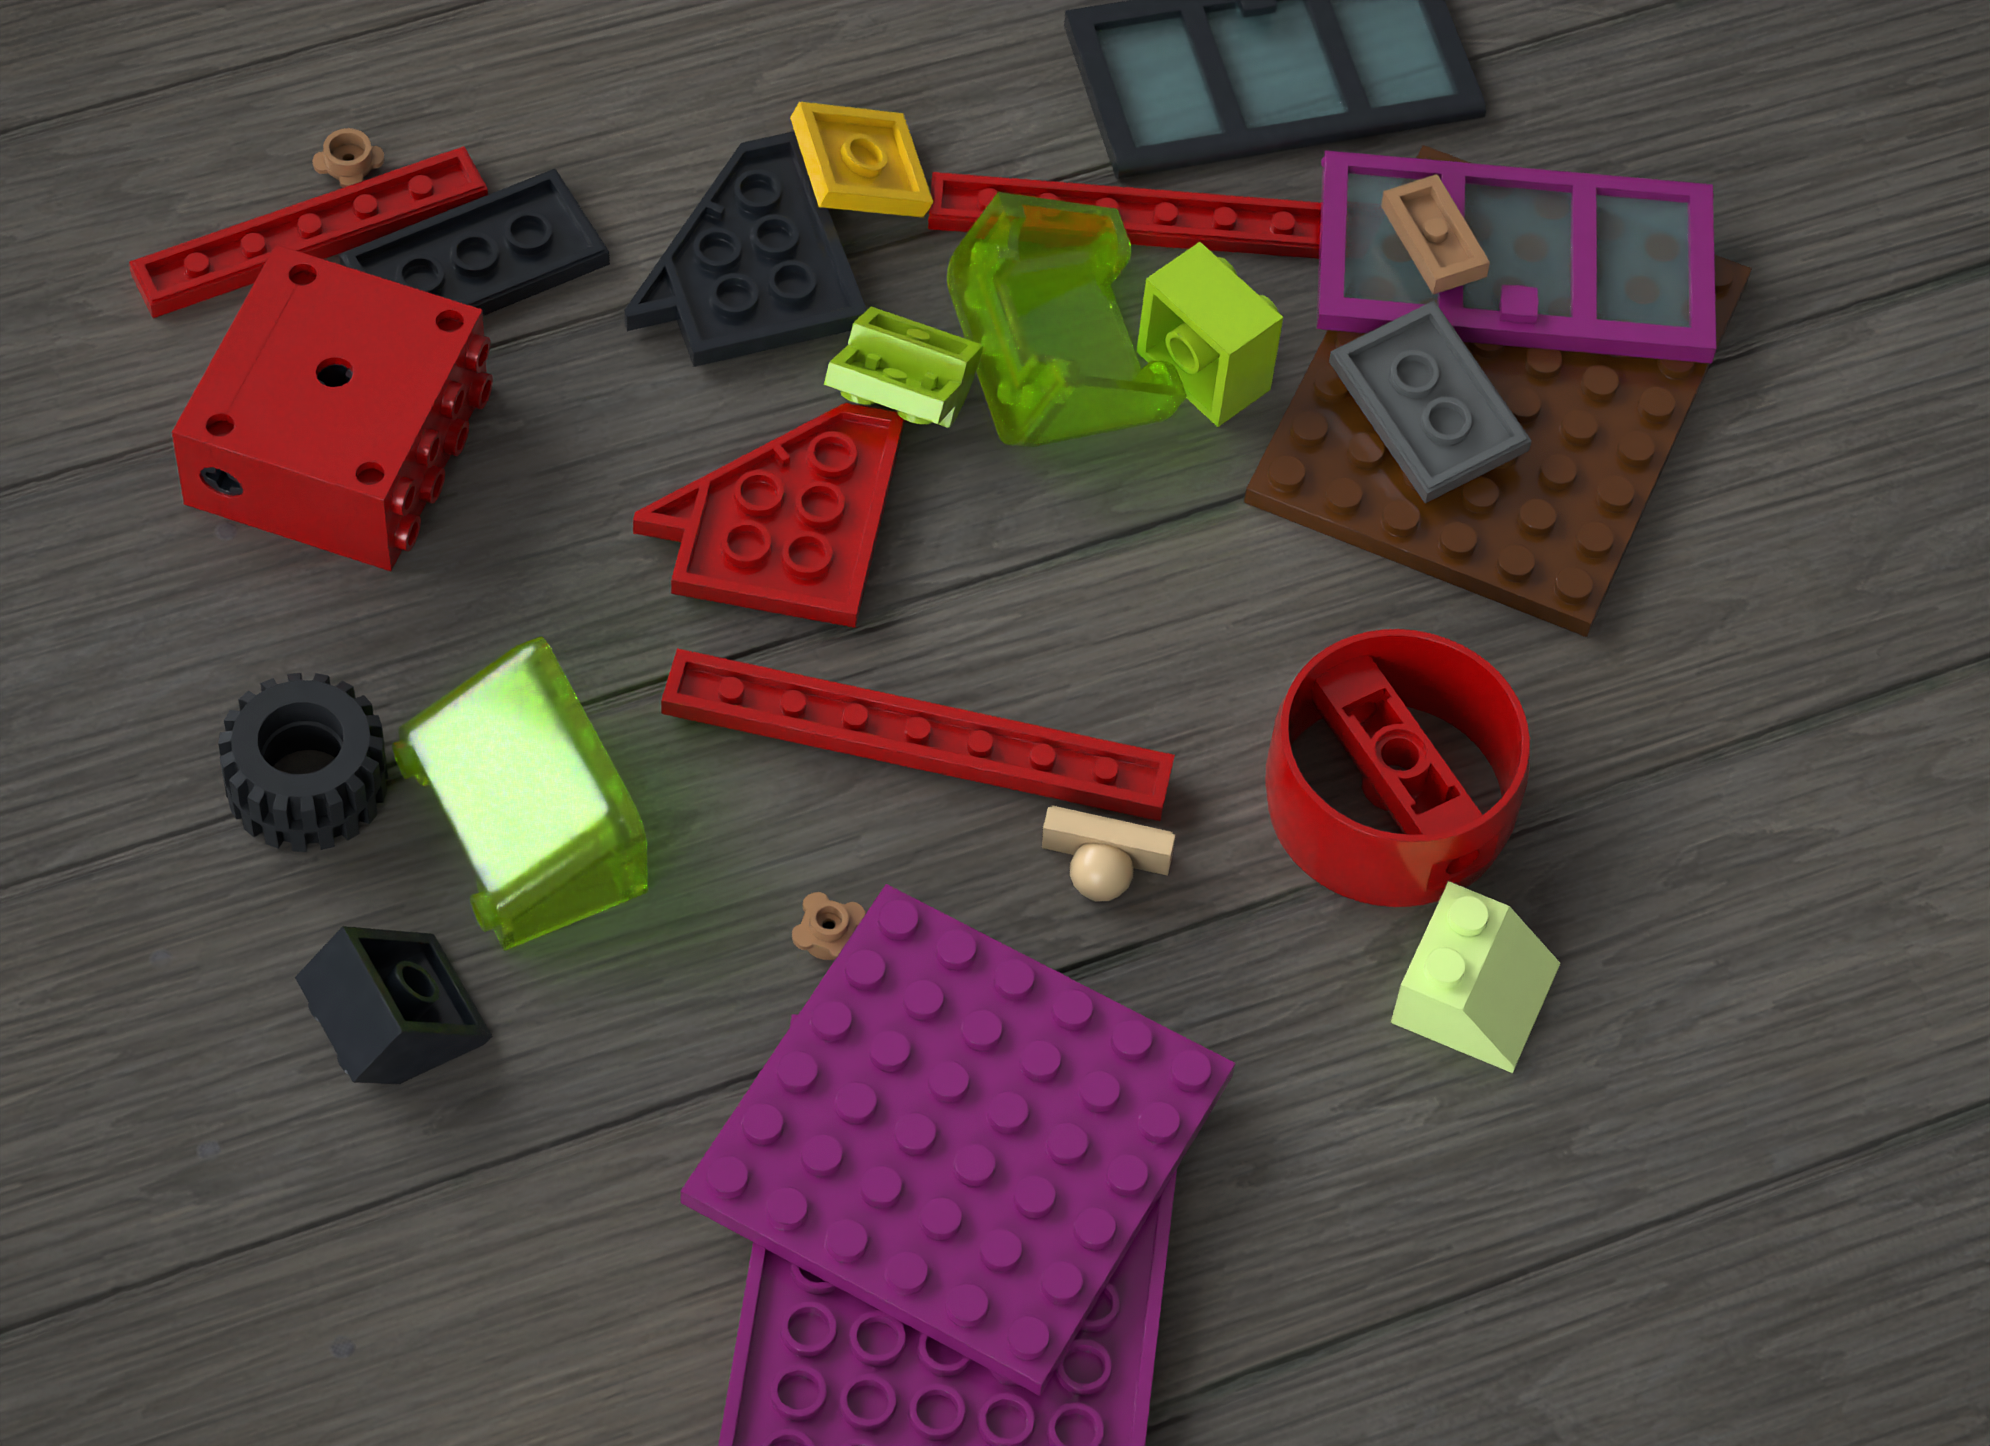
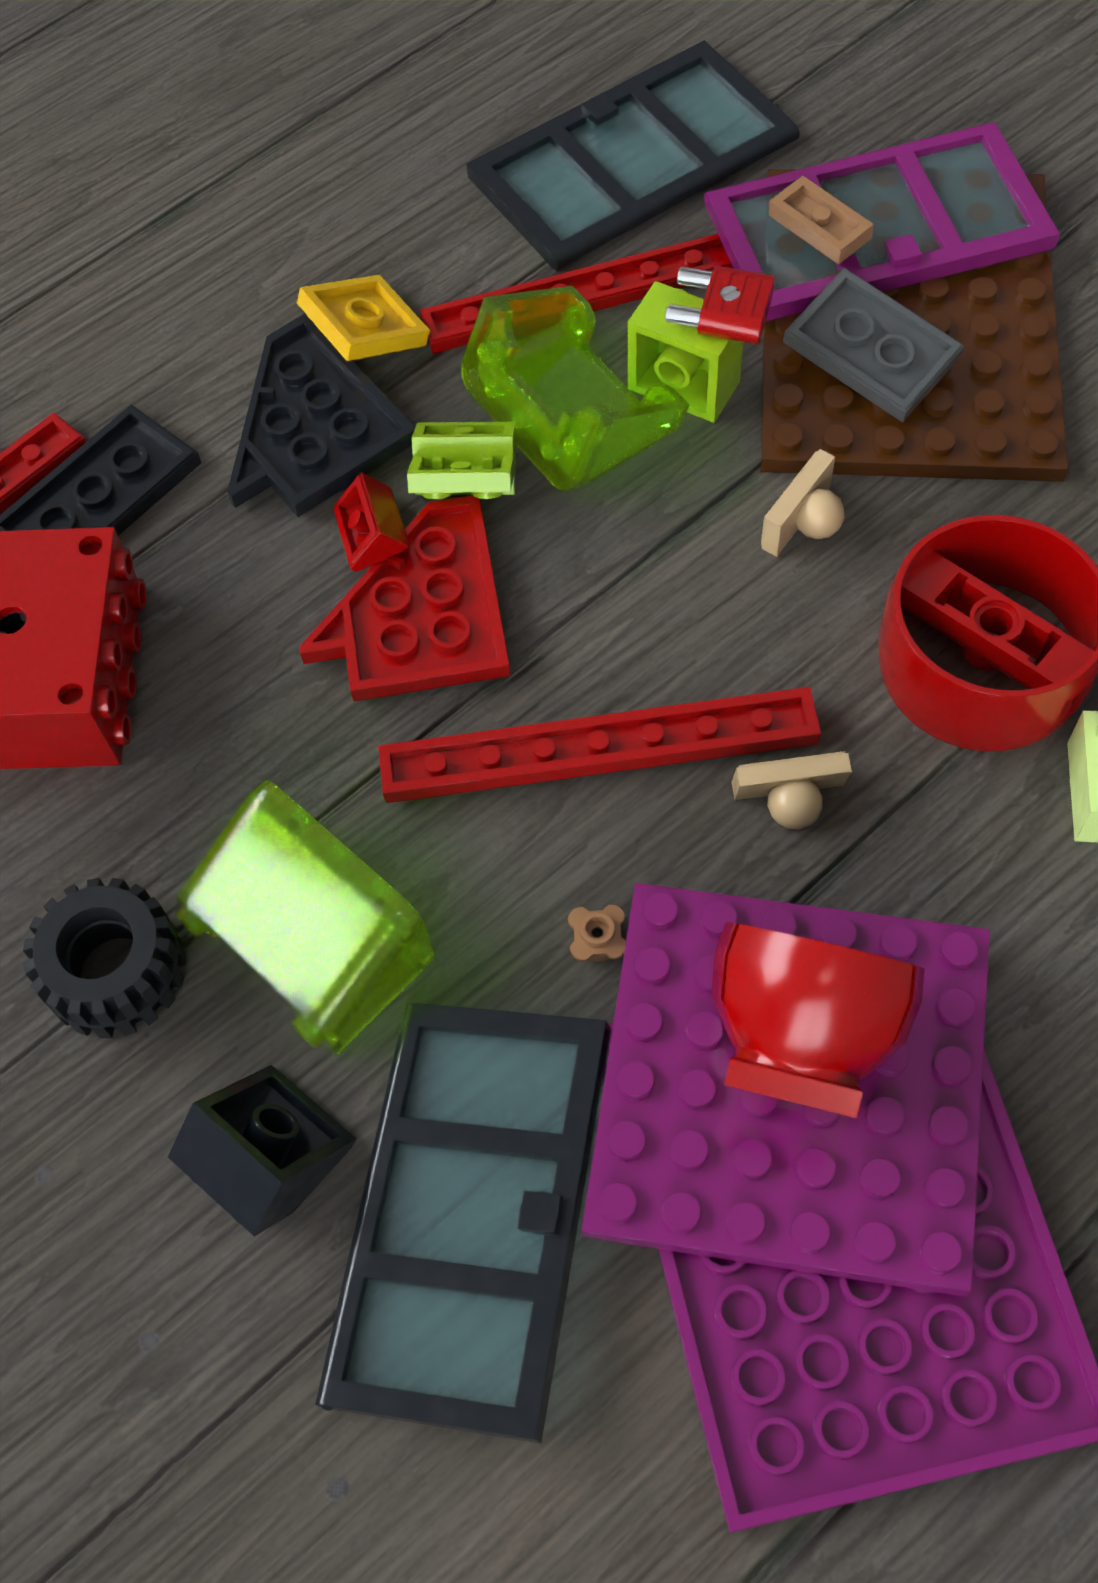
camera: 10 degrees left, 5 degrees up
(576, 1143) = (468, 1222): none -> door
(769, 402) = (369, 523): none -> red slope
(986, 1051) = (809, 1014): none -> red plate
(1266, 557) = (805, 506): none -> tan tile
(1268, 303) = (733, 304): none -> red piece

